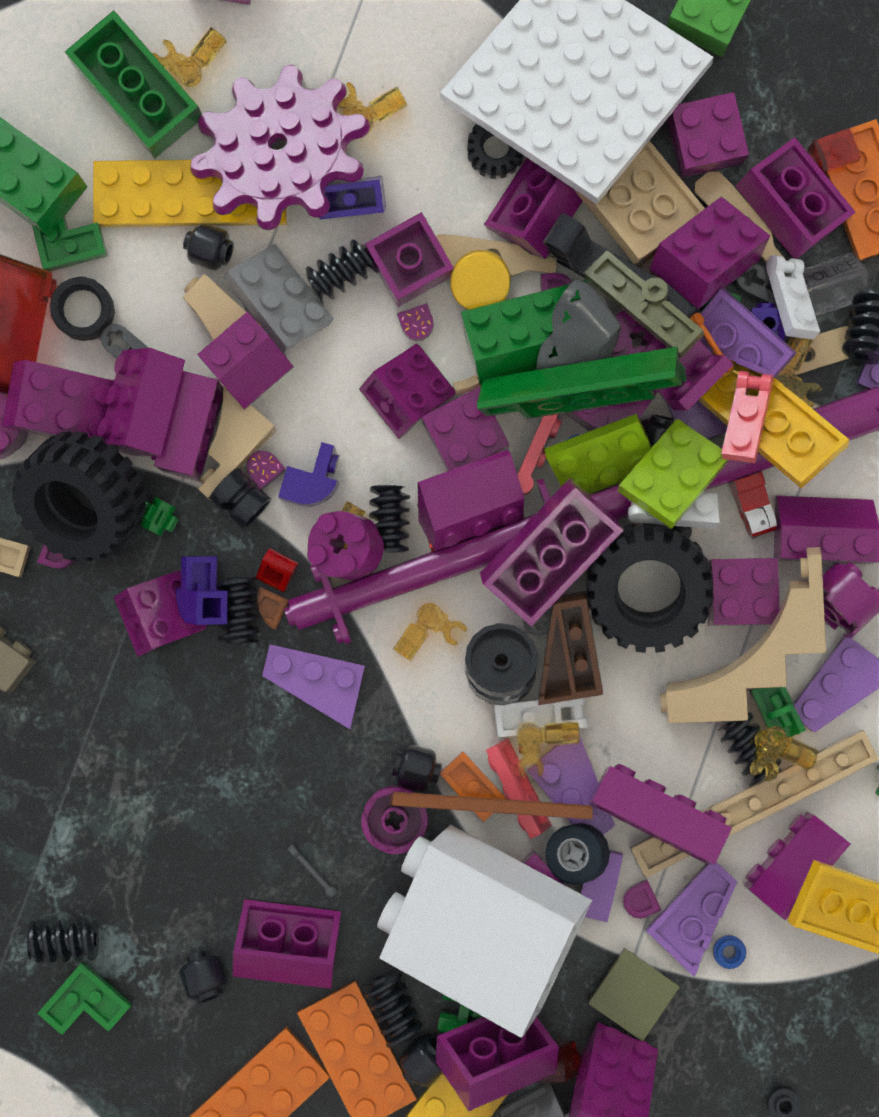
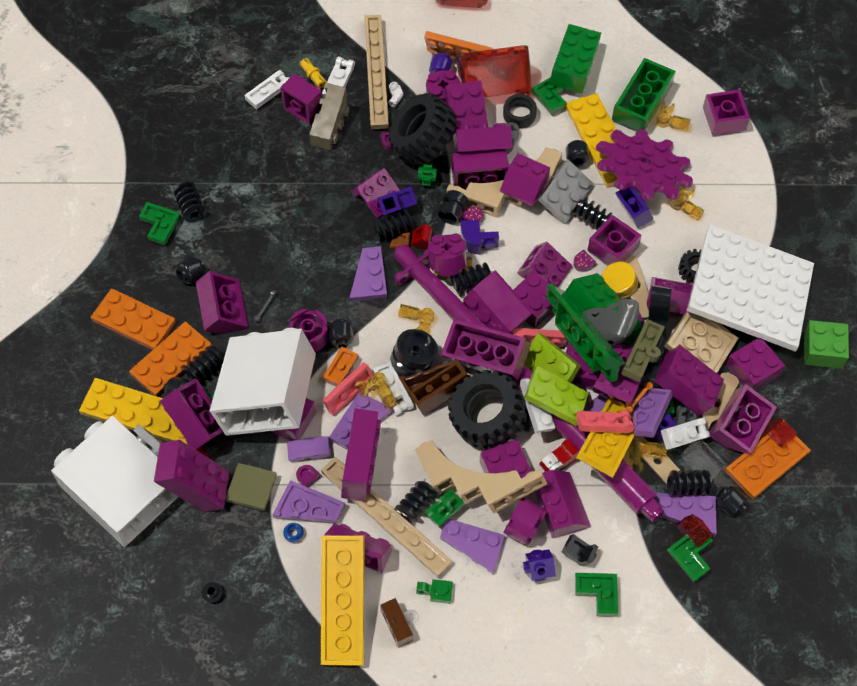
camera: 70 degrees right, 25 degrees down
(491, 805) = (334, 367): dark orange tile -> none
(566, 859) = (322, 425): black wheel -> none
(774, 743) = (425, 504): clear yellow bar -> none

